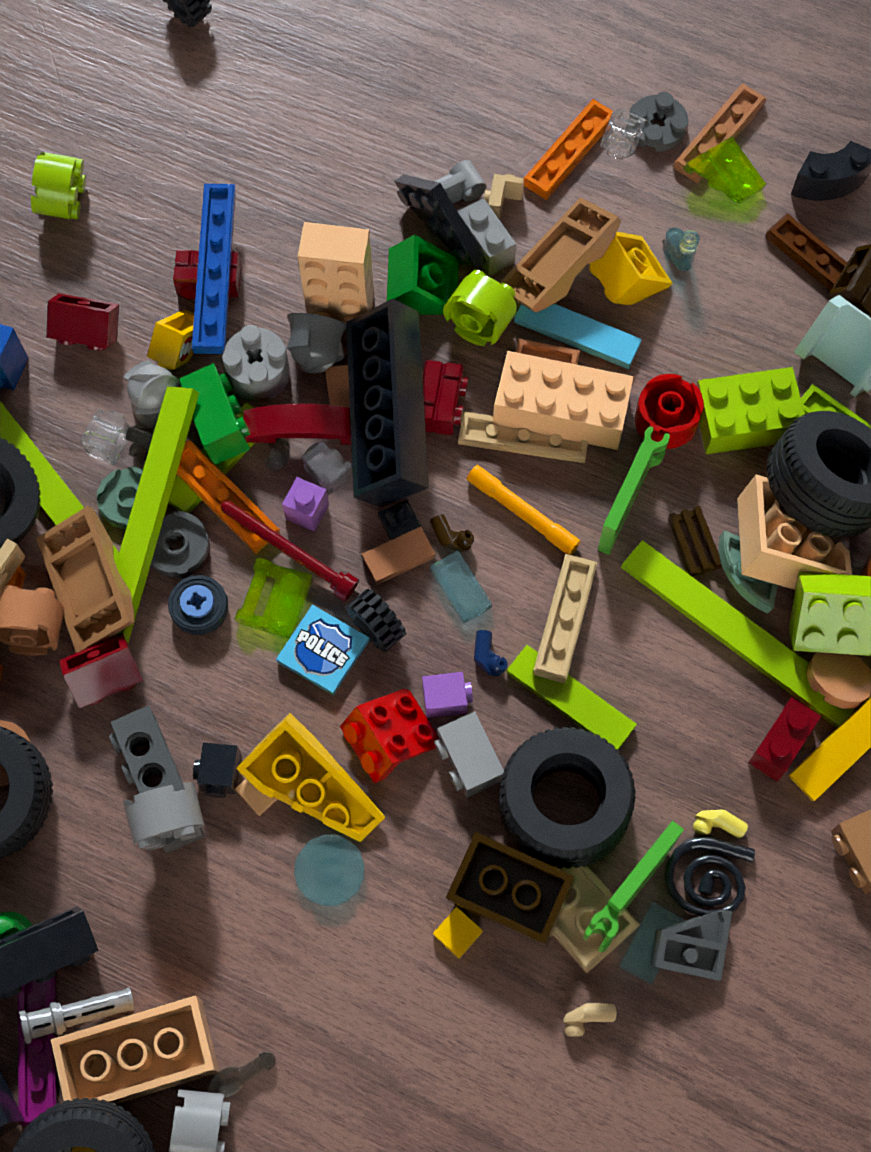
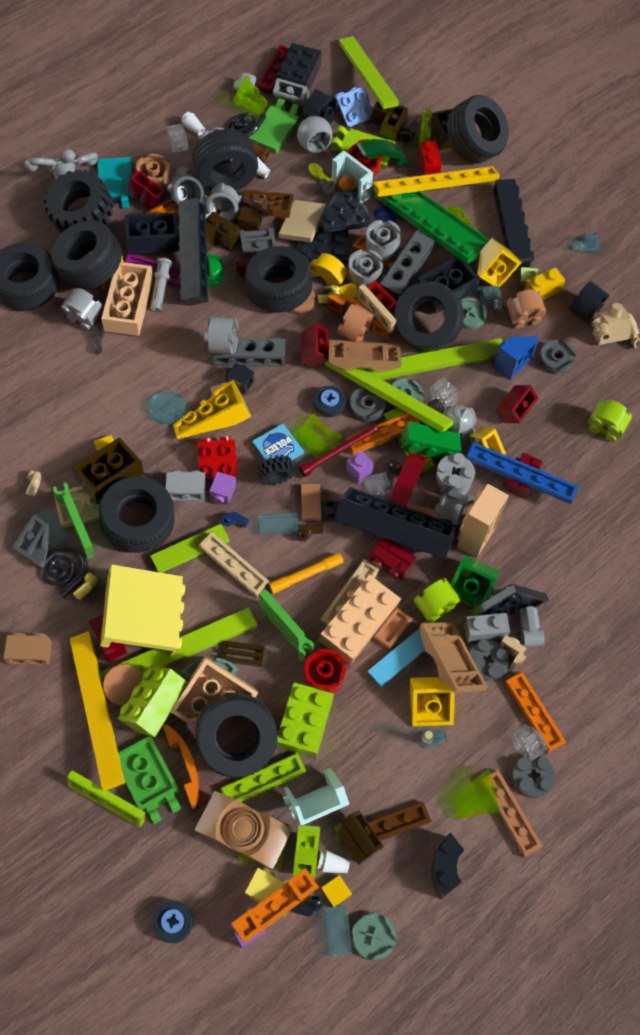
camera: 110 degrees right, 5 degrees down
(523, 210) = (496, 653): none -> dark grey plate
(726, 698) = (143, 609): none -> light yellow panel

